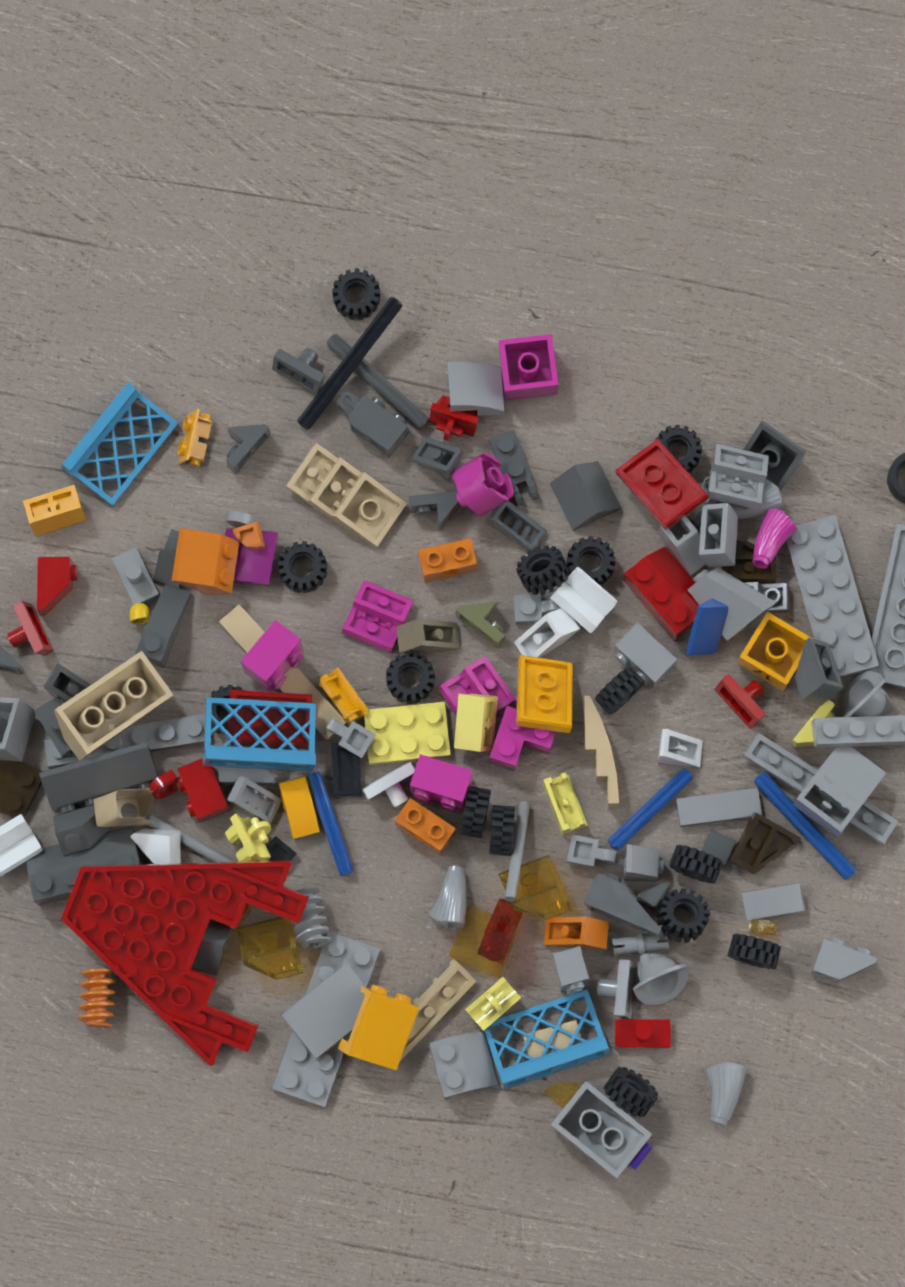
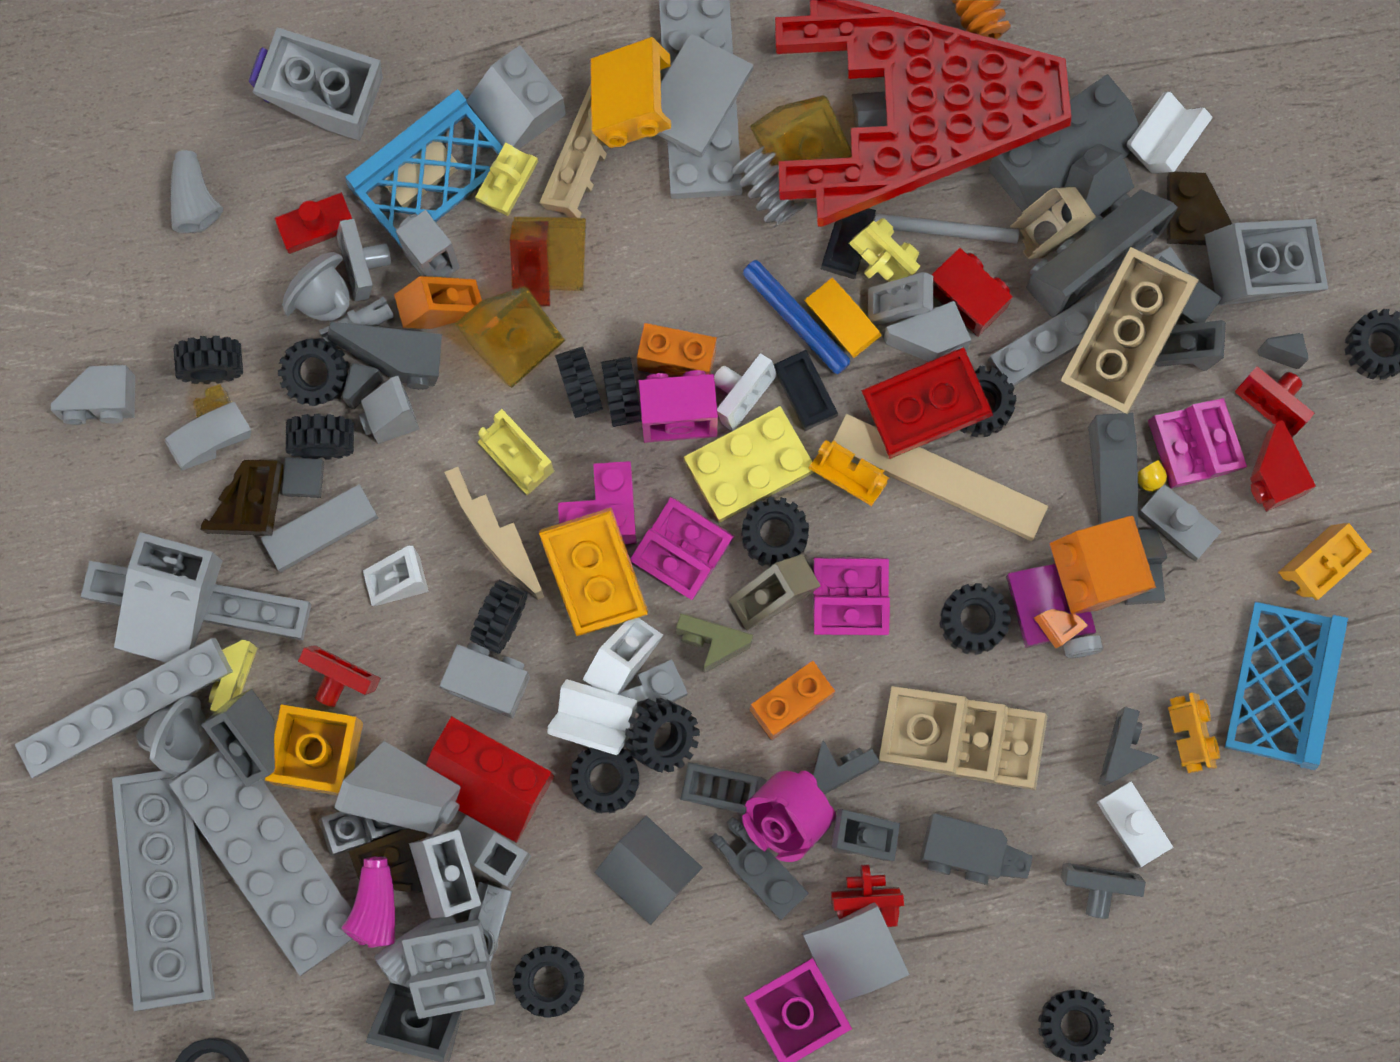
camera: 155 degrees right, 0 degrees up
(97, 624) = (1197, 443): none -> dark pink slope
(159, 845) = (988, 202): white slope -> none
(164, 785) = (1019, 274): red tile -> none
(259, 757) = (917, 341): dark azure fence -> none
(260, 398) = (1135, 824): none -> white tile
(273, 656) = (961, 469): dark pink brick -> none
(349, 363) = (1039, 920): black axle -> none
(355, 737) = (810, 422): light grey plate -> none
(381, 384) = (992, 913): dark grey axle -> none
(451, 903) = (606, 275): light grey piece -> none
(475, 722) = (667, 503): light yellow hinge -> none
(517, 851) = (549, 364): light grey bar -> none
(562, 1092) = (384, 119): clear yellow tile -> none
(585, 851) = (466, 405): light grey plate -> none
(631, 1091) = (305, 126): black tyre -> none
(650, 809) = (405, 491): blue axle -> none
(661, 484) = (548, 913): red tile -> none
(707, 628) = (414, 744): blue slope -> none
(805, 825) = (232, 562): blue axle -> none

